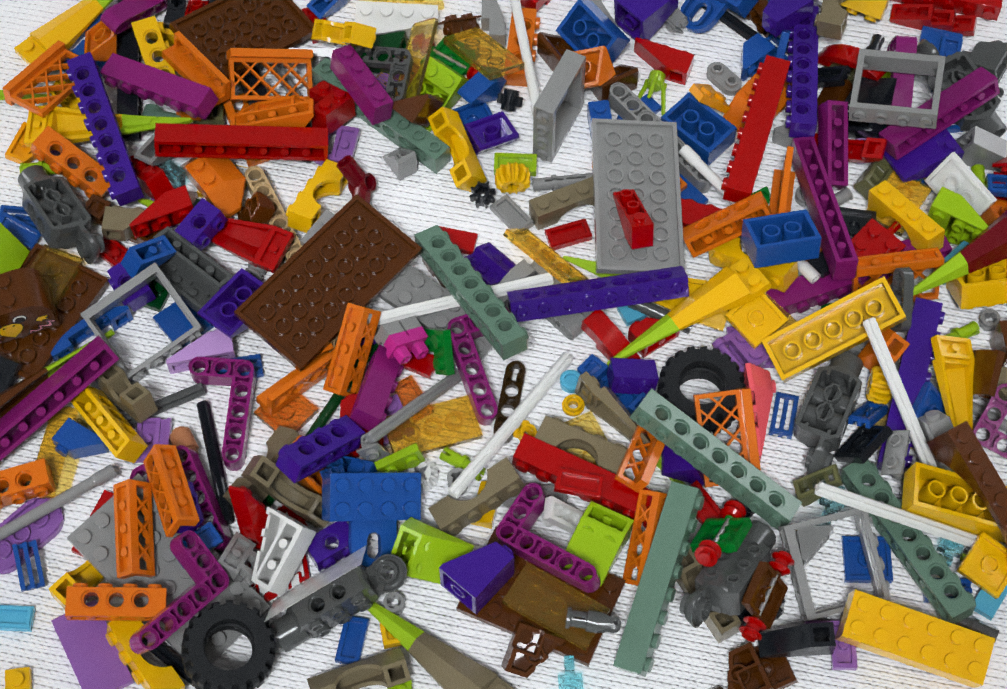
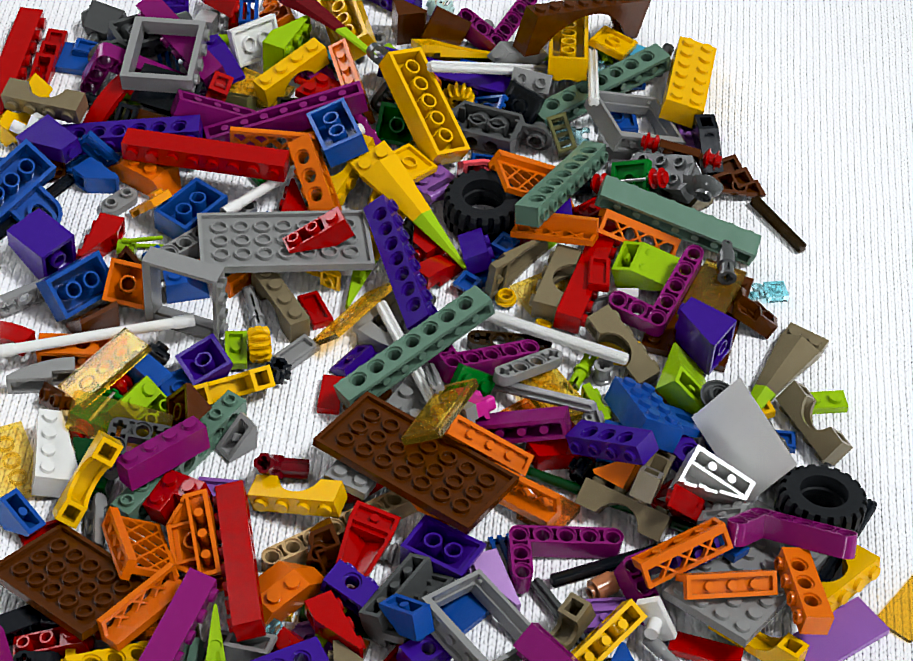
camera: 100 degrees left, 15 degrees down
(121, 471) = (658, 622): none -> white tile
(375, 298) = (440, 412): none -> clear yellow tile
(432, 306) = (434, 378): none -> light grey axle
(455, 405) = (528, 367): none -> light grey beam

